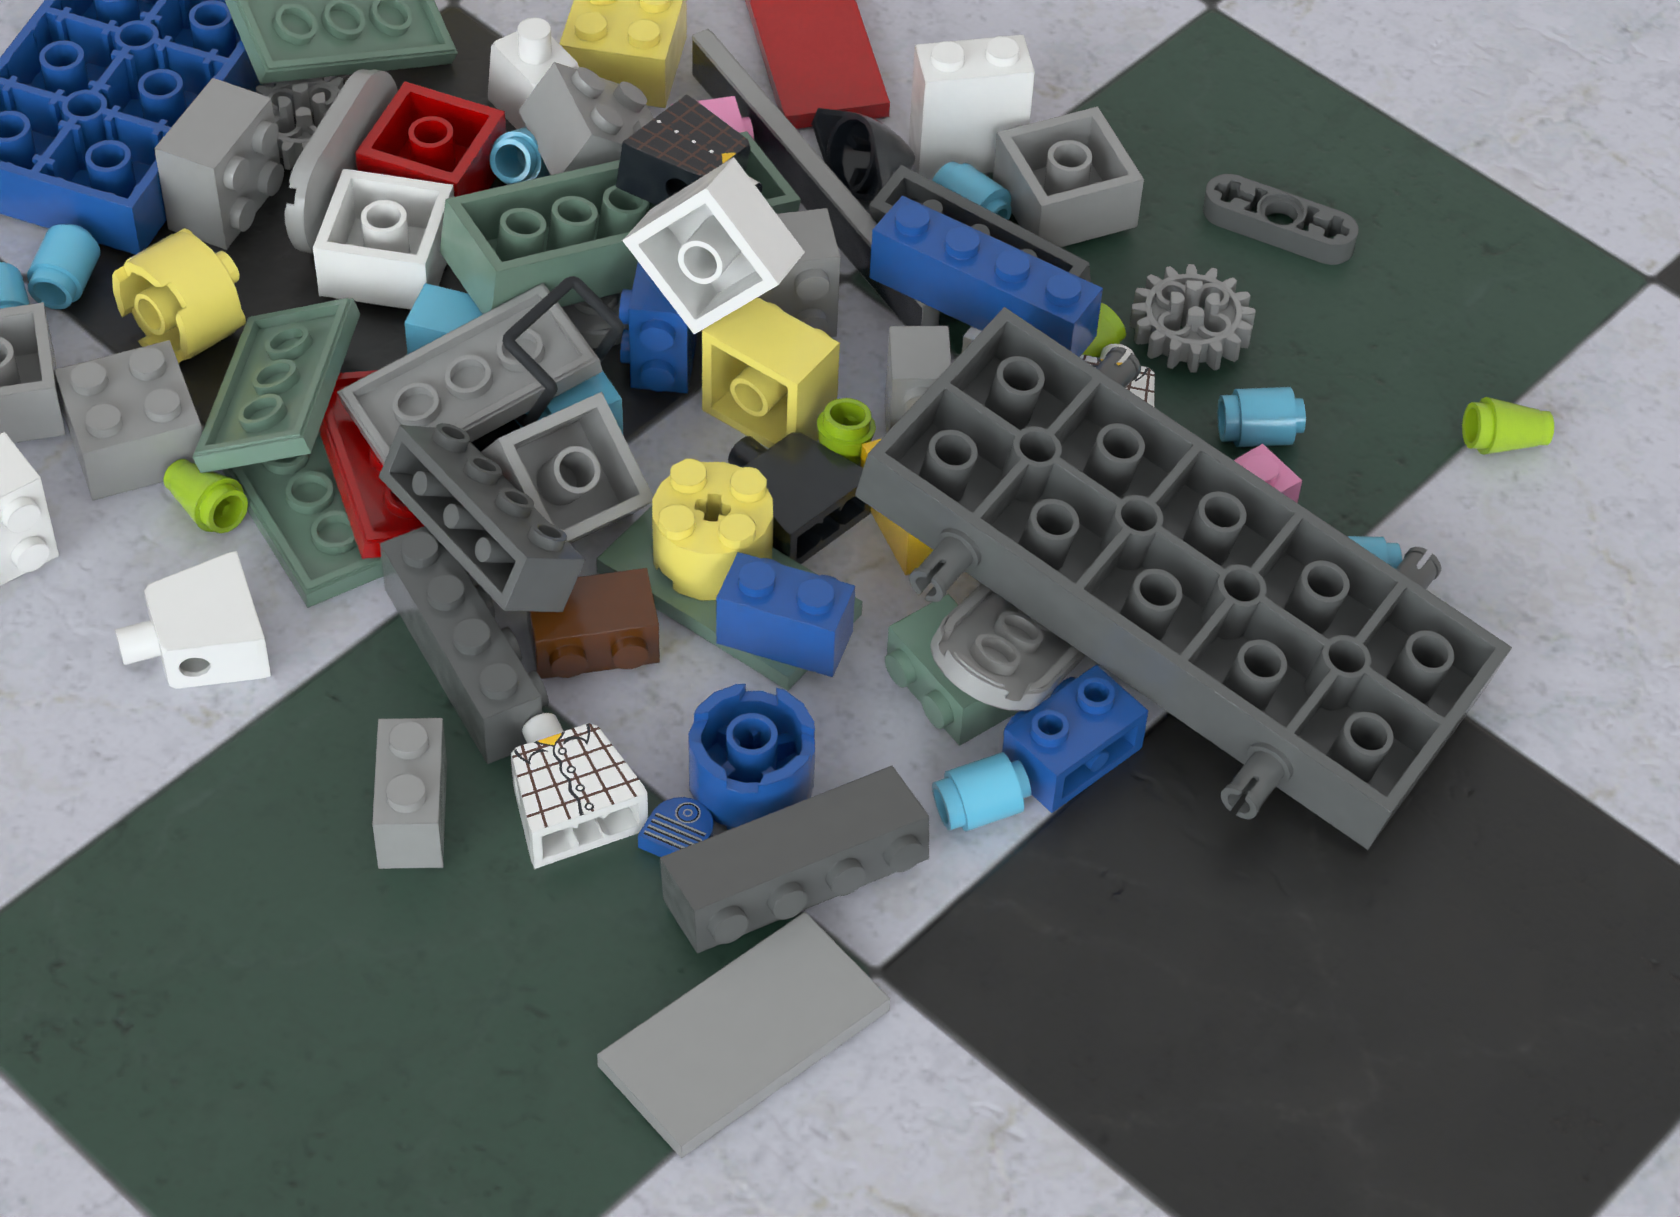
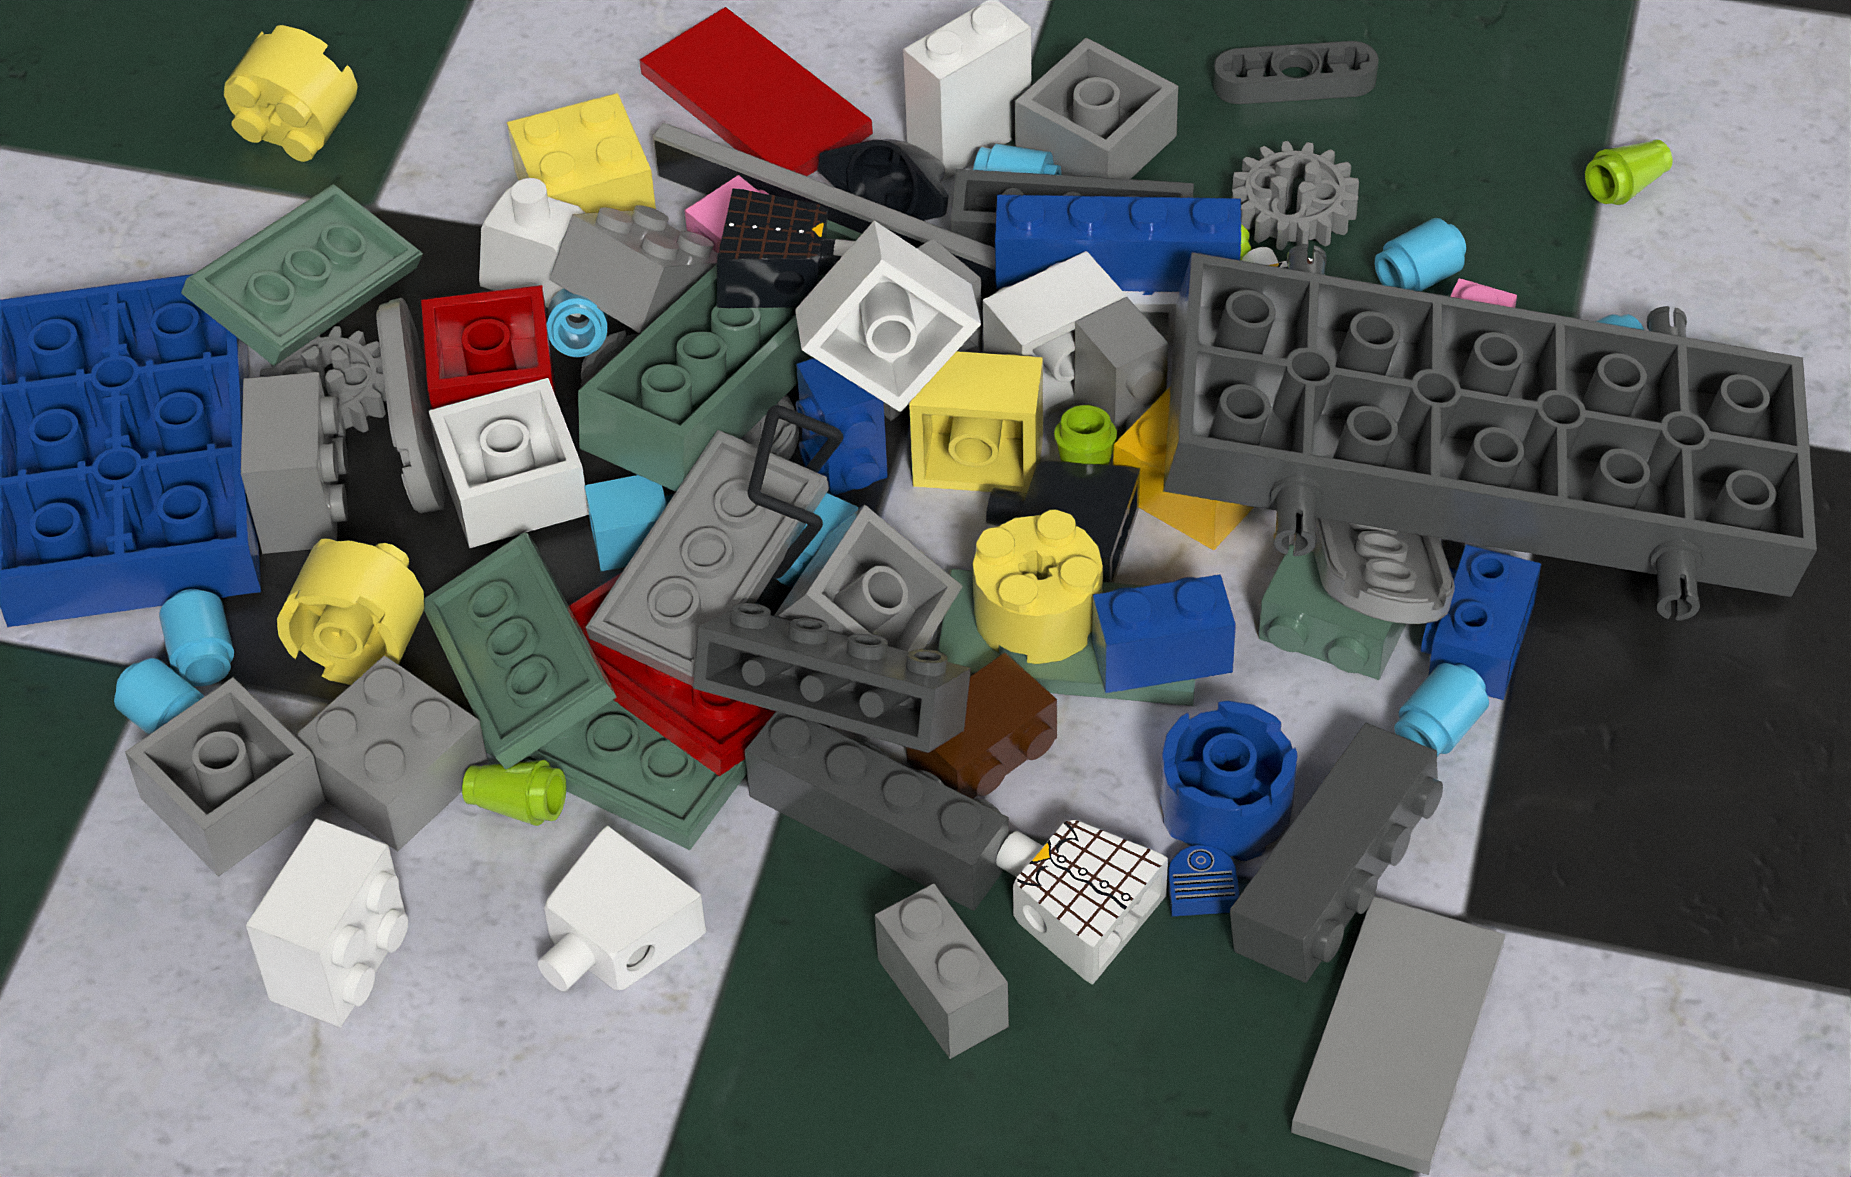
camera: 25 degrees left, 0 degrees up
(860, 318) = (1040, 320): none -> white brick

